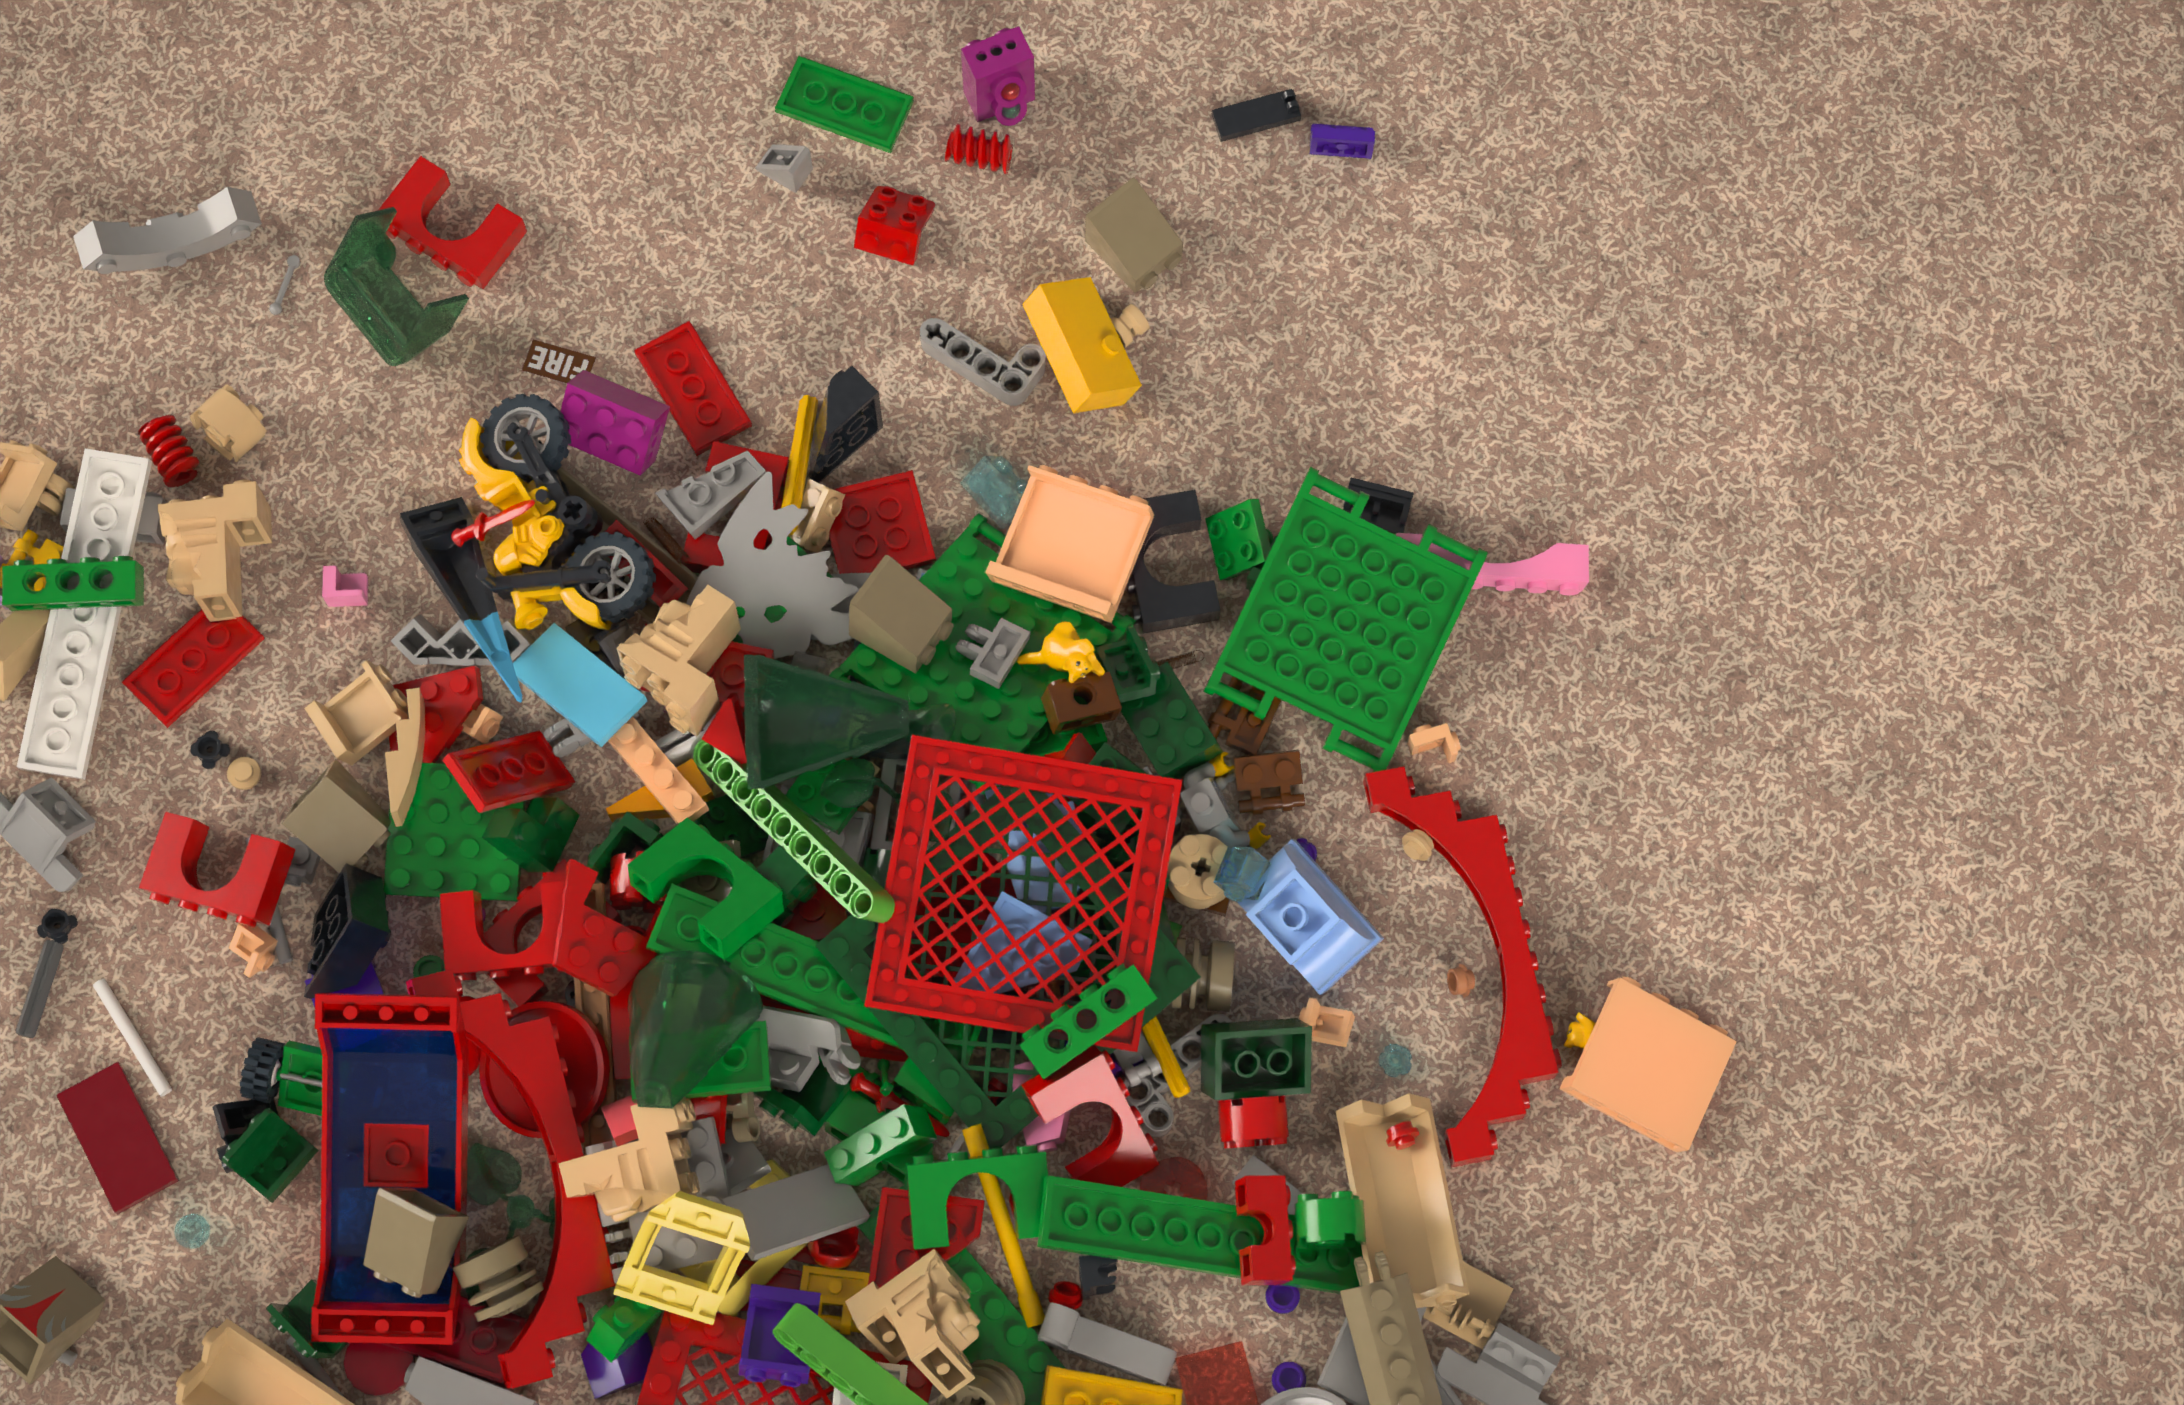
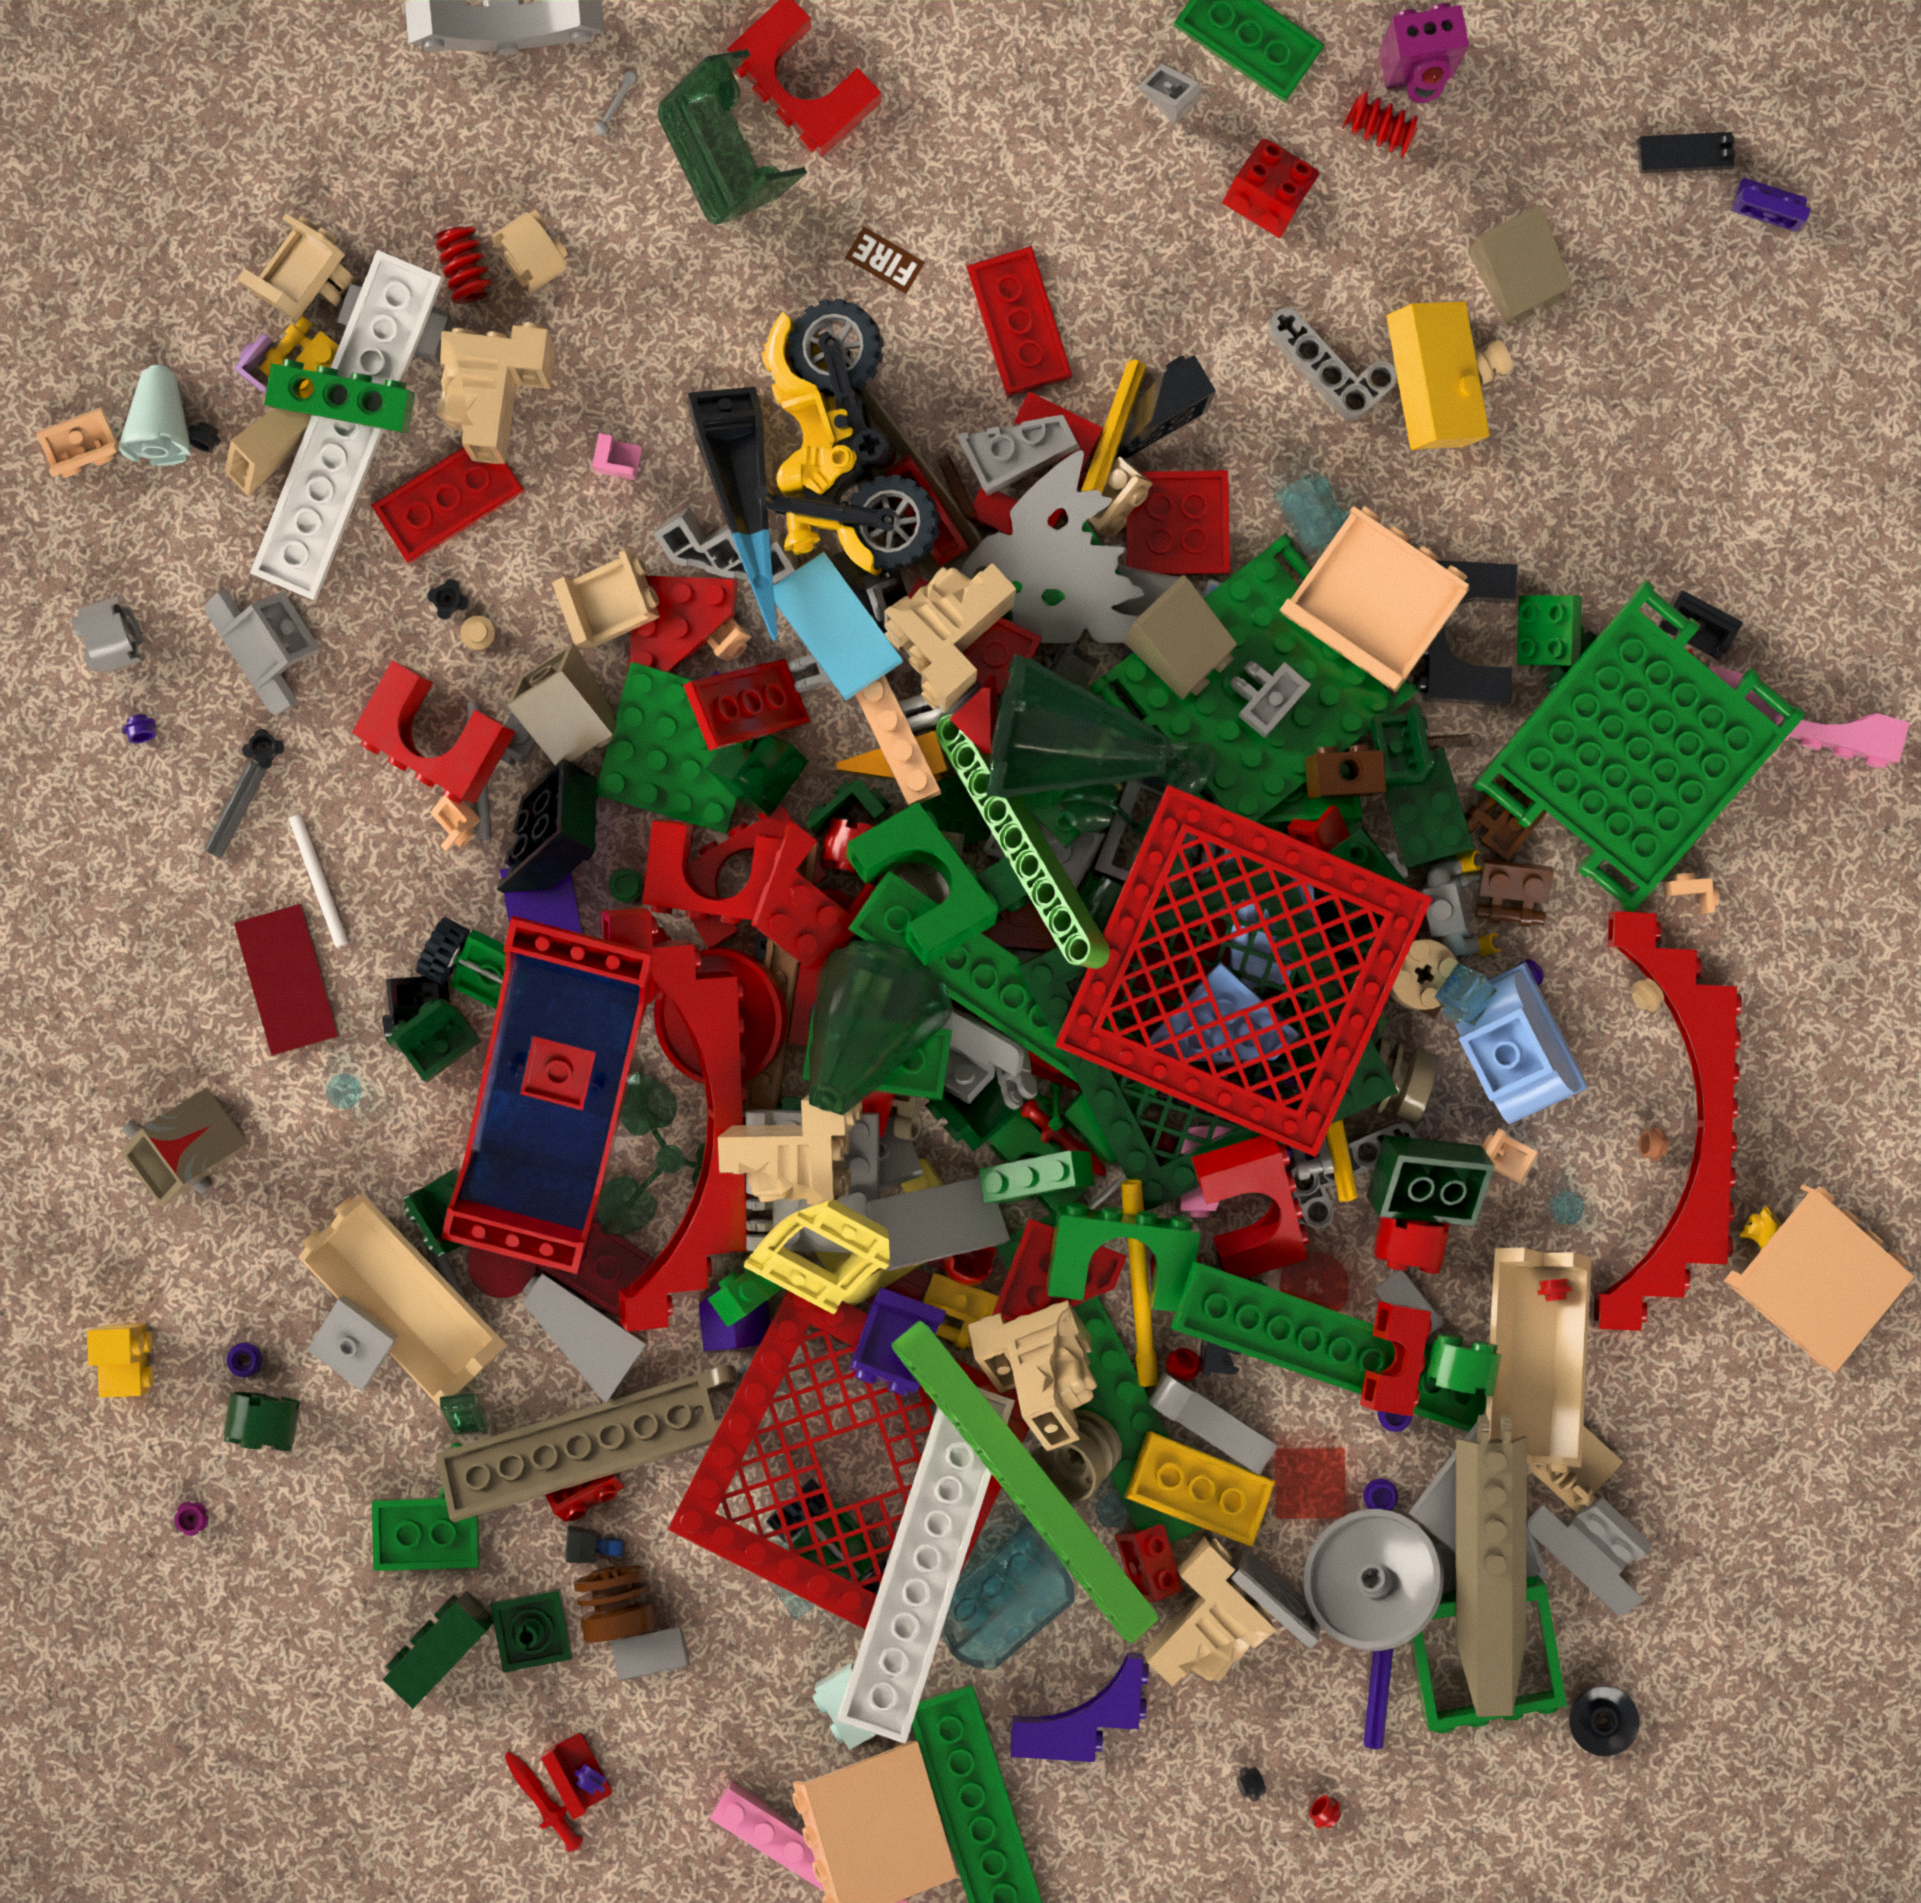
camera: 10 degrees right, 15 degrees up
(406, 763) = (642, 674): tan slope -> none
(412, 1239) = (559, 1164): dark tan slope -> none
(484, 524) = (773, 430): sword -> none
(498, 1278) = (634, 1219): dark tan wheel -> none
(613, 422) = (930, 346): magenta piece -> none
(620, 1120) = (788, 1091): coral slope -> none
(1066, 653) = (1341, 717): yellow animal -> none
(1137, 997) = (1262, 1136): green brick -> none

